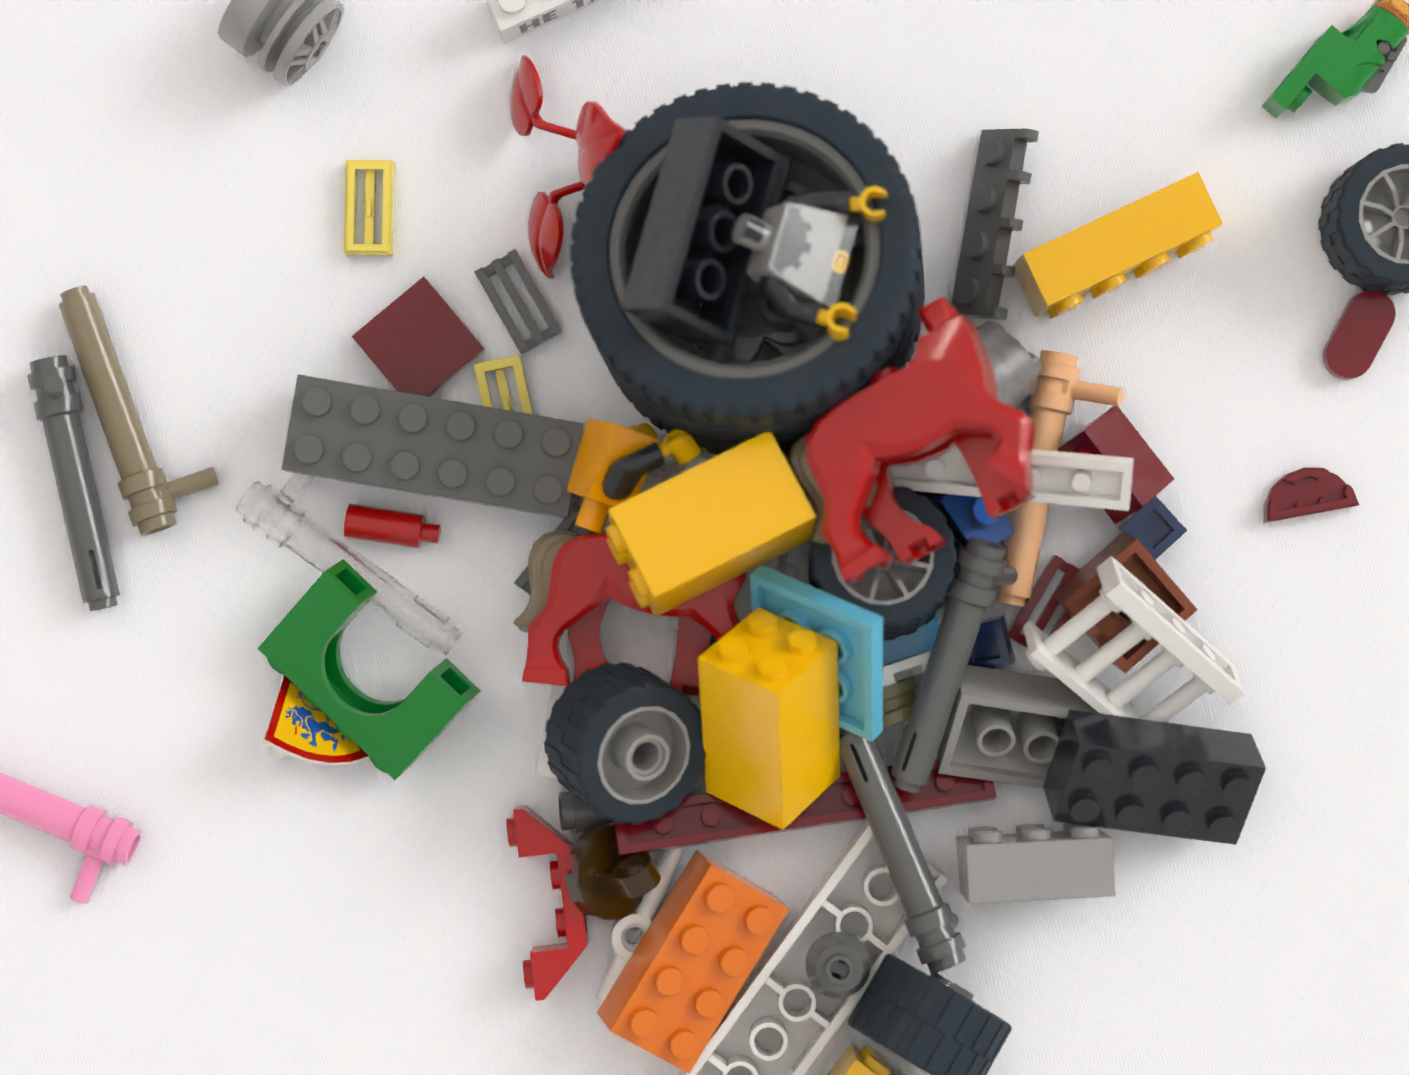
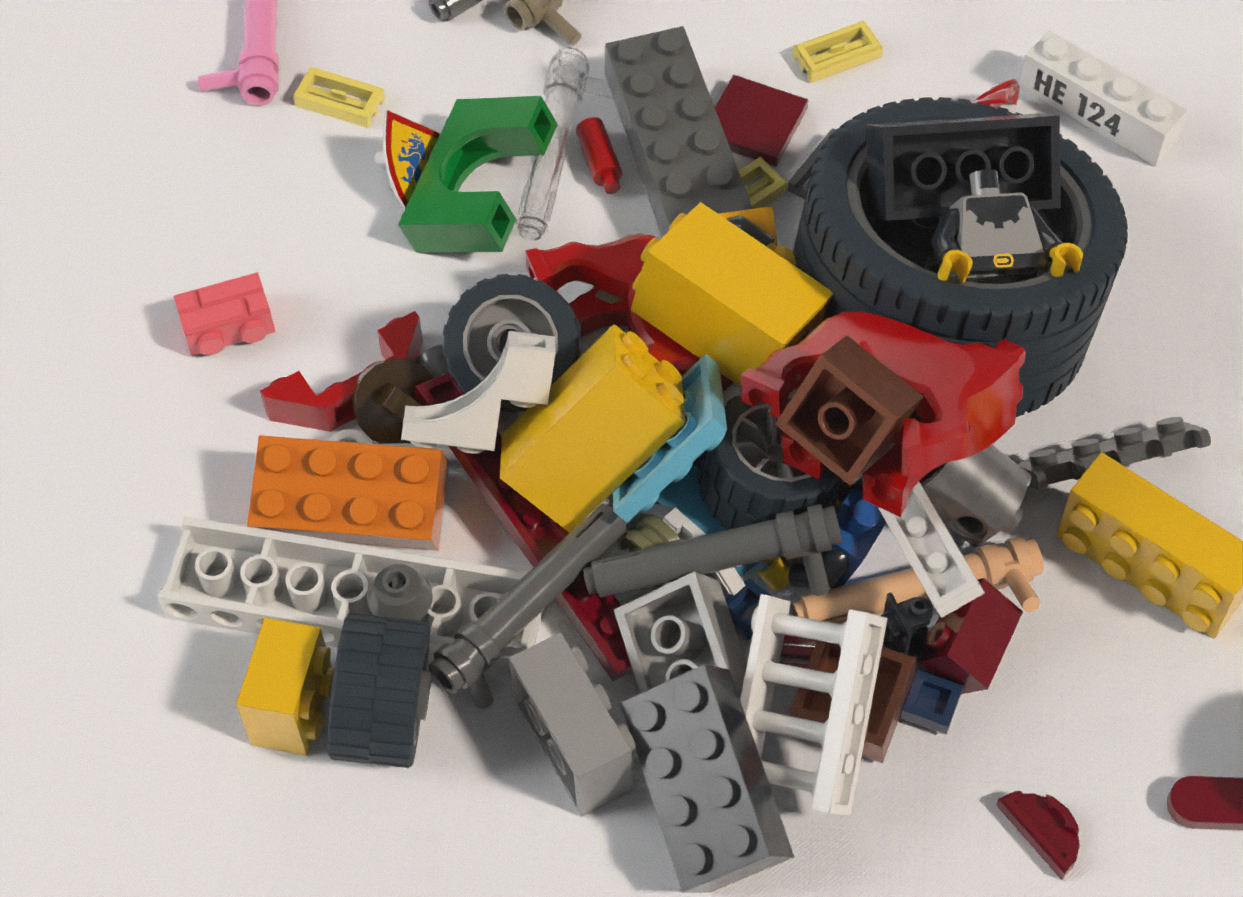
camera: 60 degrees right, 30 degrees down
(202, 733) = (335, 102): none -> light yellow tile
(411, 993) = (224, 314): none -> coral brick
(698, 824) = (472, 419): none -> white arch
(935, 501) = (848, 409): none -> copper brick
(1088, 527) = (906, 624): none -> black hinge

